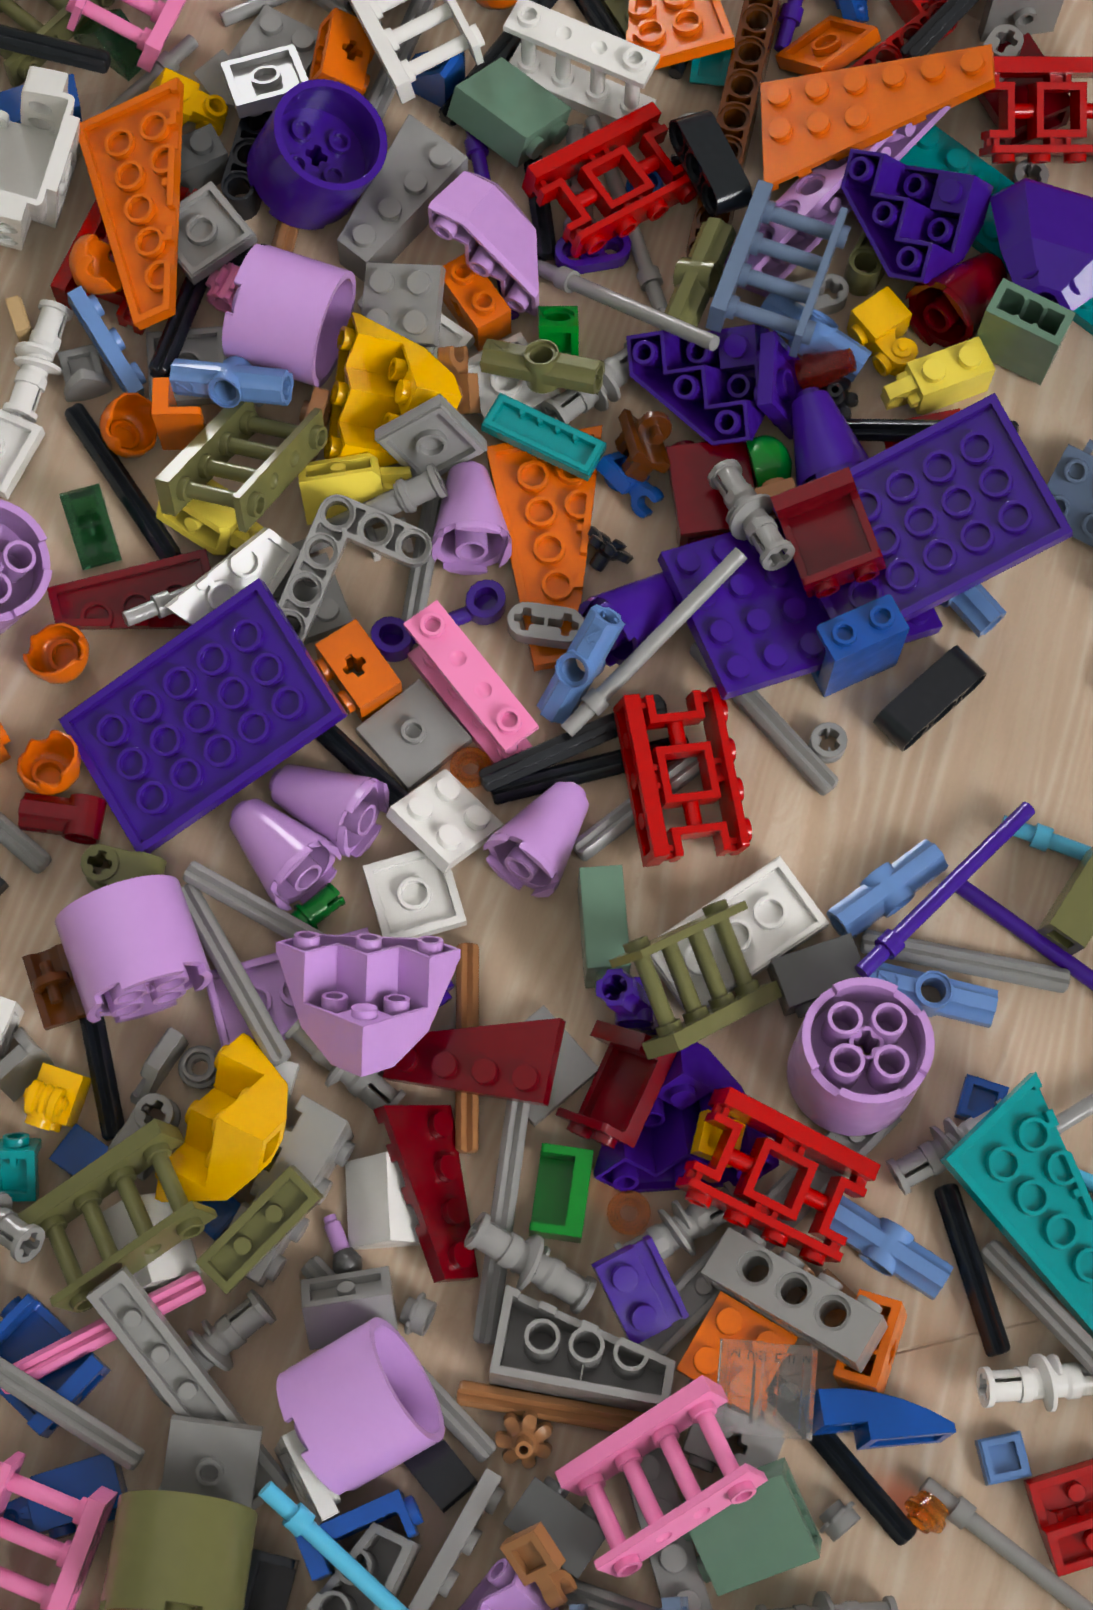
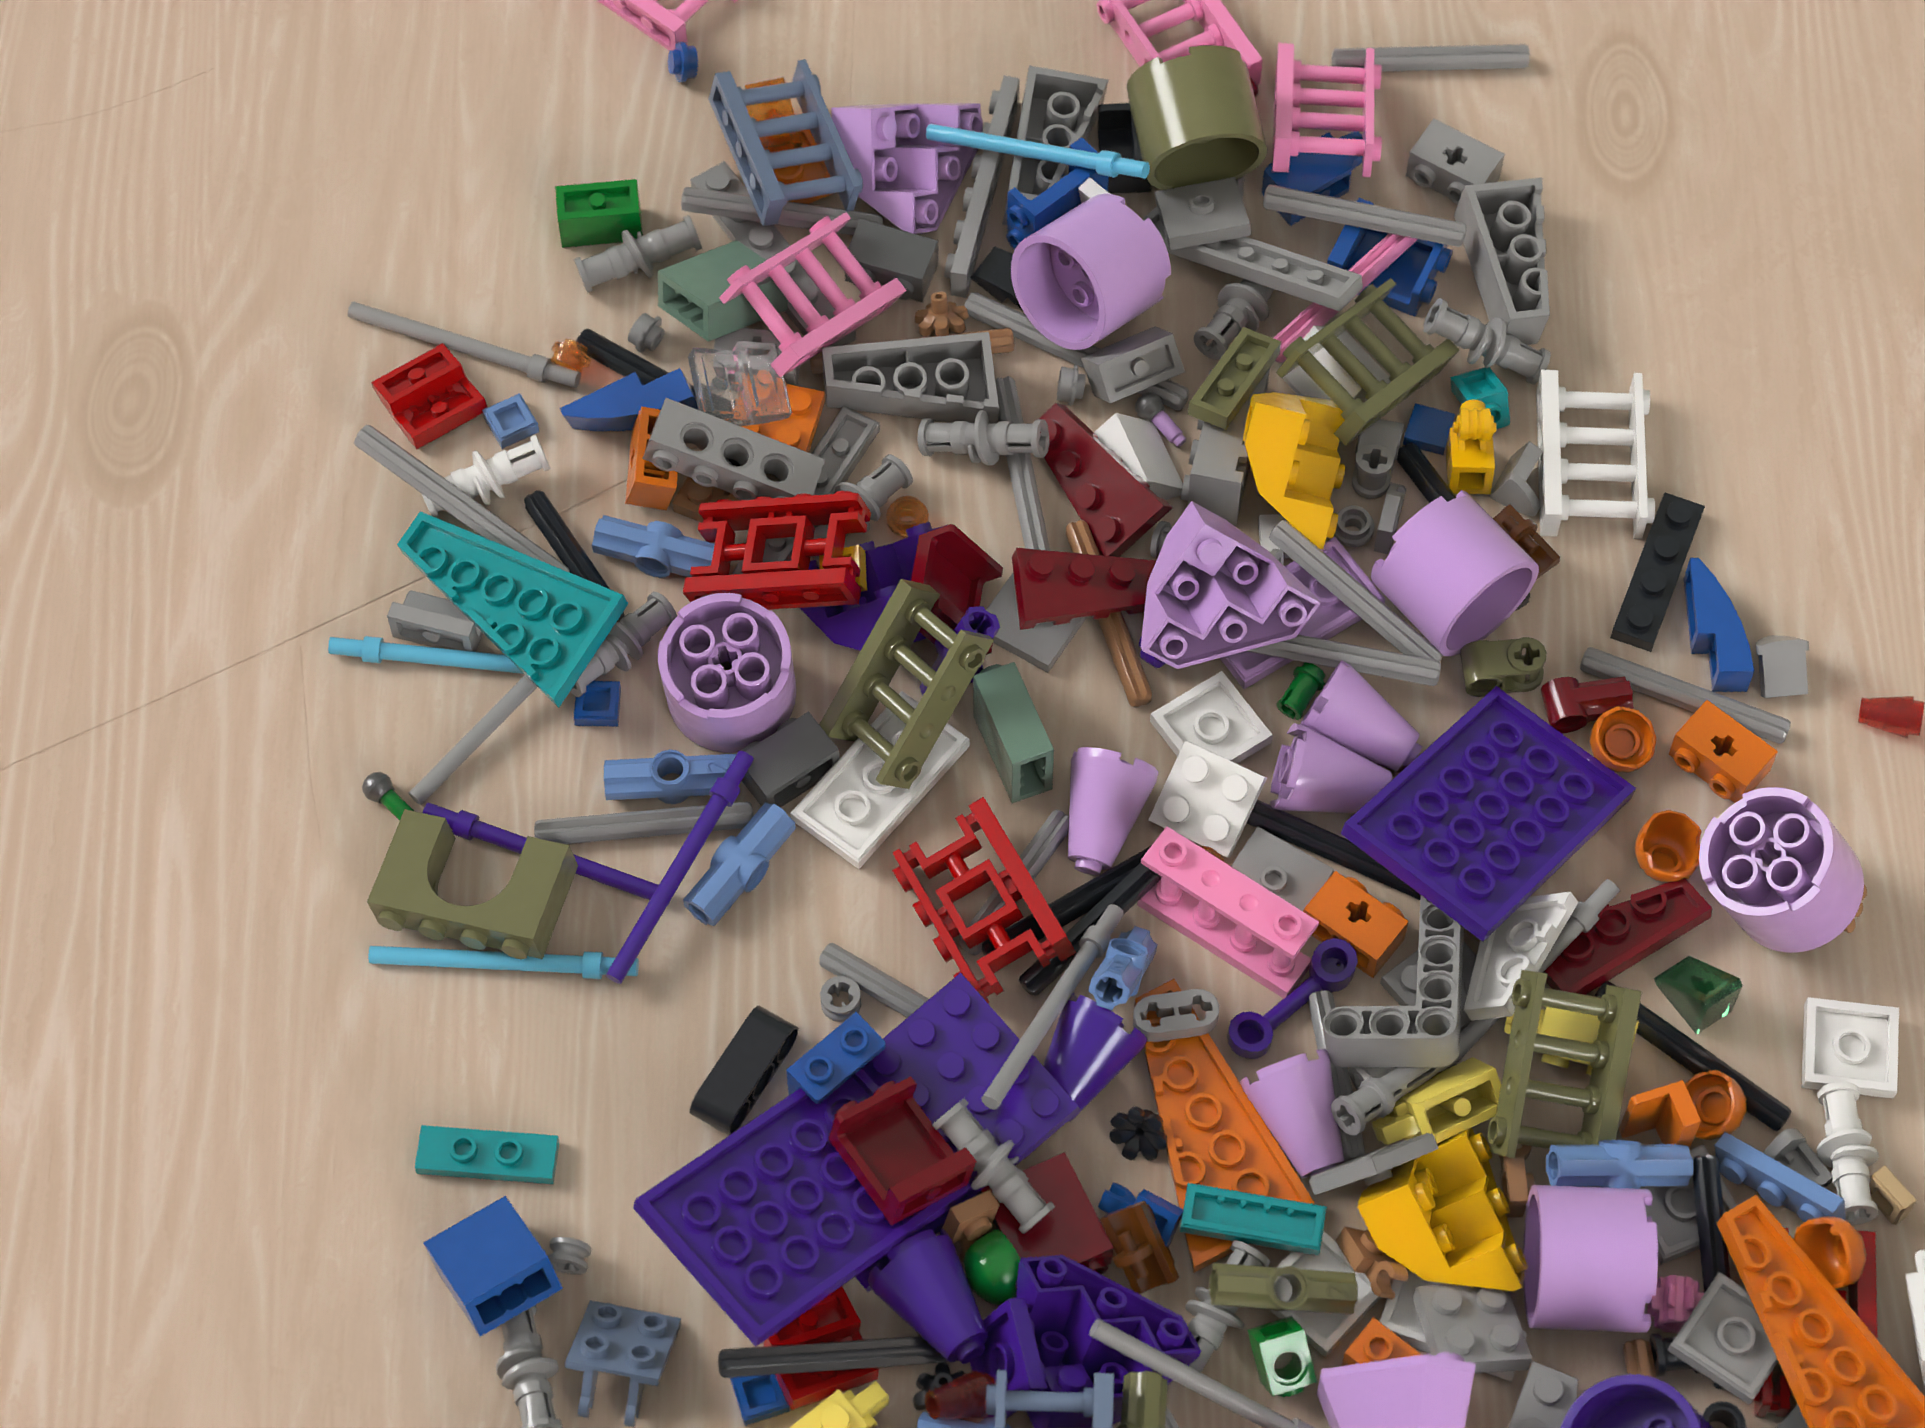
camera: 165 degrees right, 10 degrees down
(539, 1560) = (899, 214): medium nougat plate -> none
(561, 1192) = (975, 505): green panel -> none
(640, 1290) = (876, 441): dark purple plate -> none

